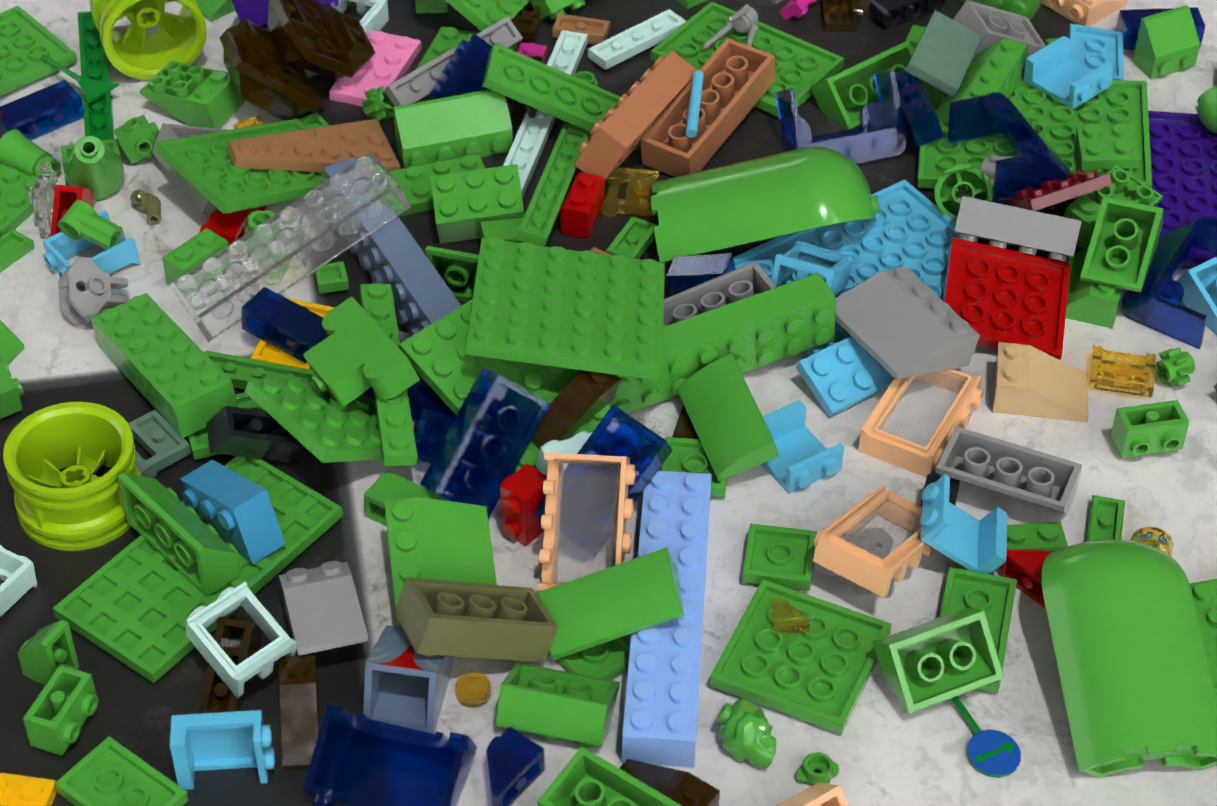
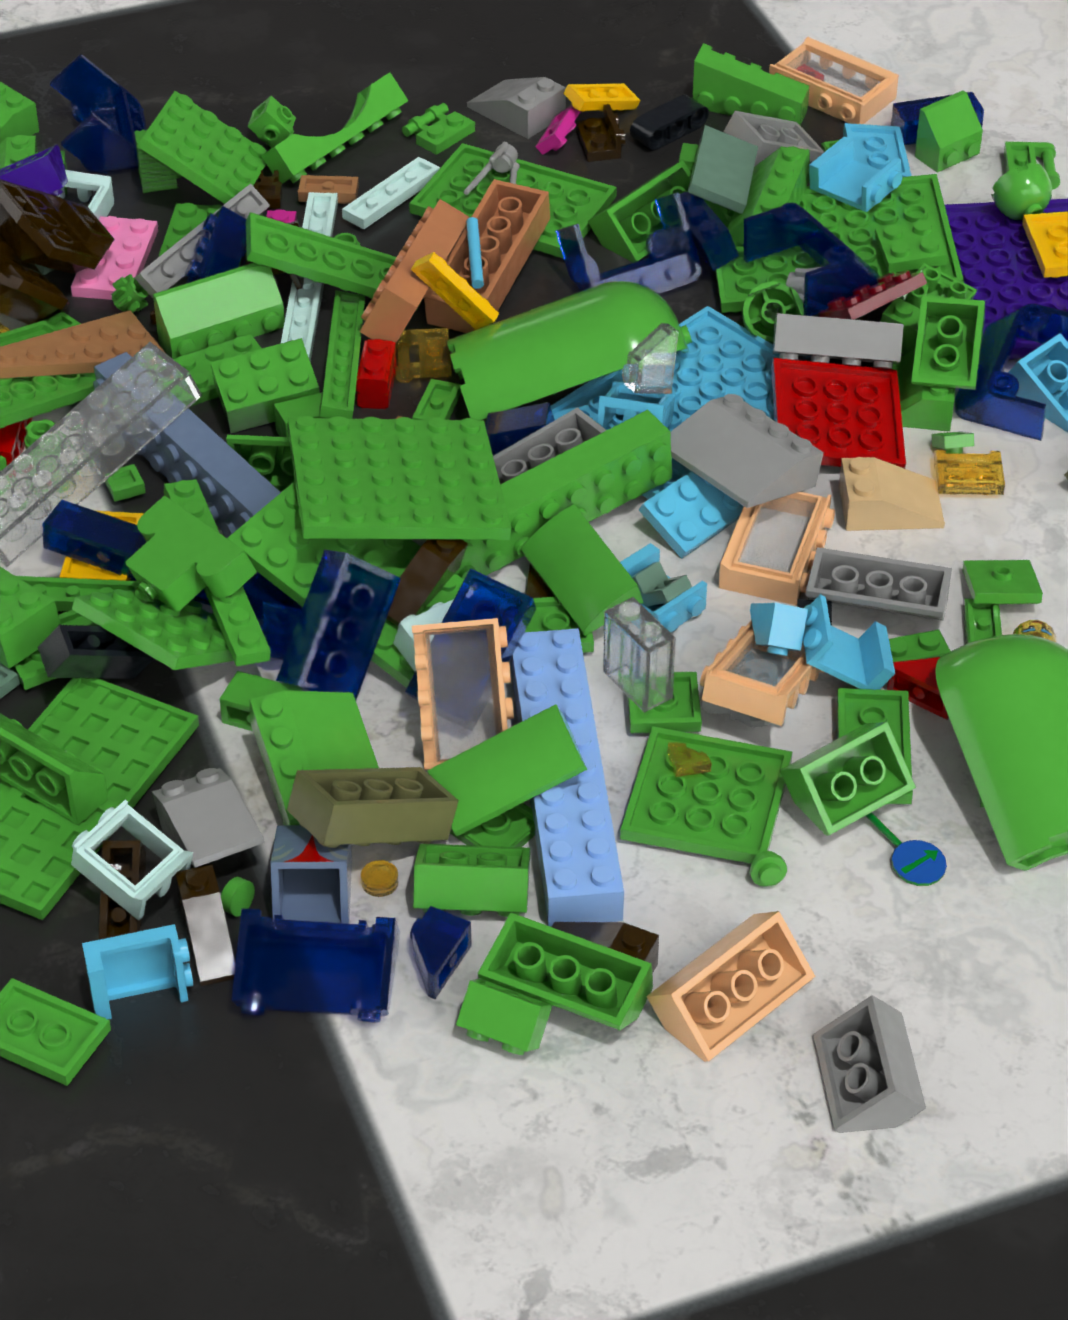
camera: 10 degrees left, 0 degrees up
(234, 508) = (89, 728): dark azure wedge -> none
(335, 687) = (236, 895): none -> bright green tile
(518, 500) = (387, 680): red brick -> none
(666, 137) = (455, 291): none -> yellow plate
(746, 733) = (671, 878): bright green head -> none
(760, 508) = (639, 654): none -> clear brick
(797, 443) = (657, 587): none -> sand green bracket
(817, 762) = (748, 901): bright green plate -> none
(833, 228) = (652, 362): none -> clear slope
(843, 737) = (768, 869): none -> bright green plate
(900, 500) = (778, 627): none -> medium azure slope
(1112, 339) = (953, 441): none -> bright green plate
(1132, 483) = (1002, 582): none -> bright green plate
(1149, 428) = (1009, 525): bright green brick -> none
(1174, 367) = (1021, 461): bright green gear -> none

